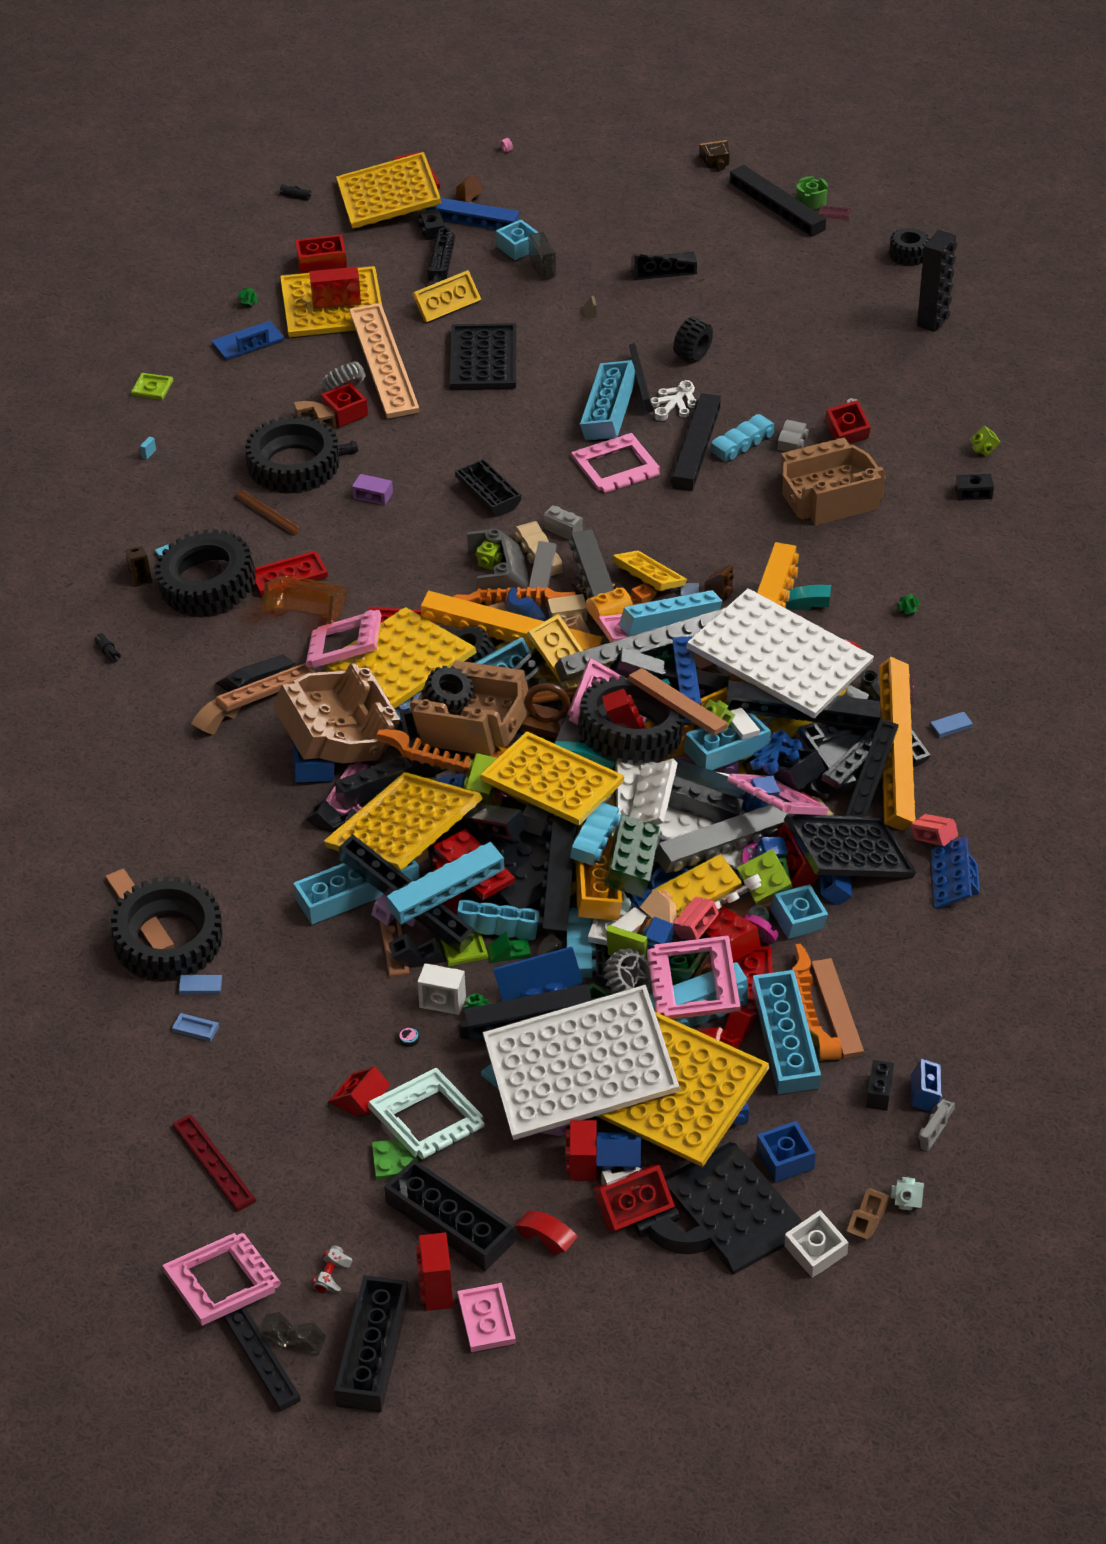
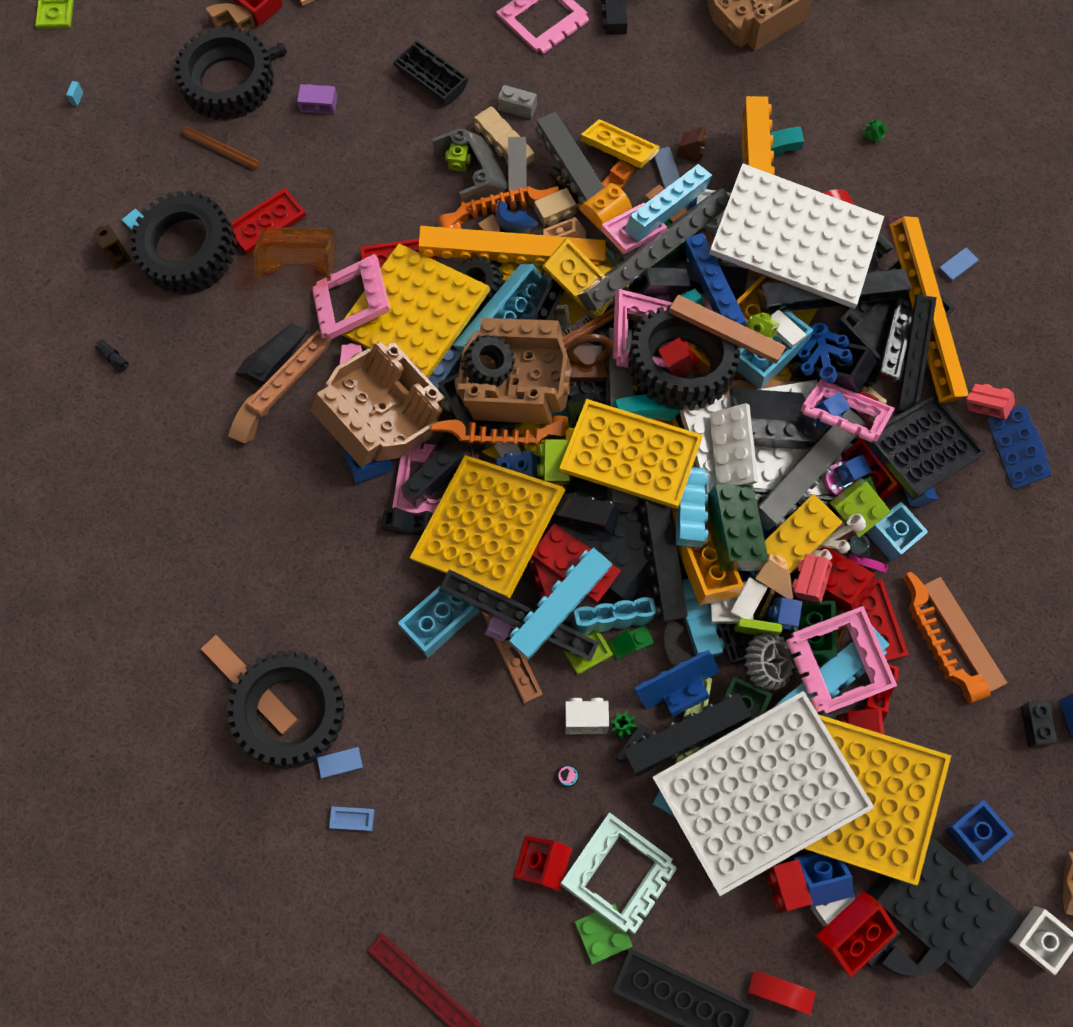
camera: 15 degrees left, 25 degrees up
(409, 954) = (542, 673): black brick -> none
(786, 1032) = (935, 688): medium azure brick -> none

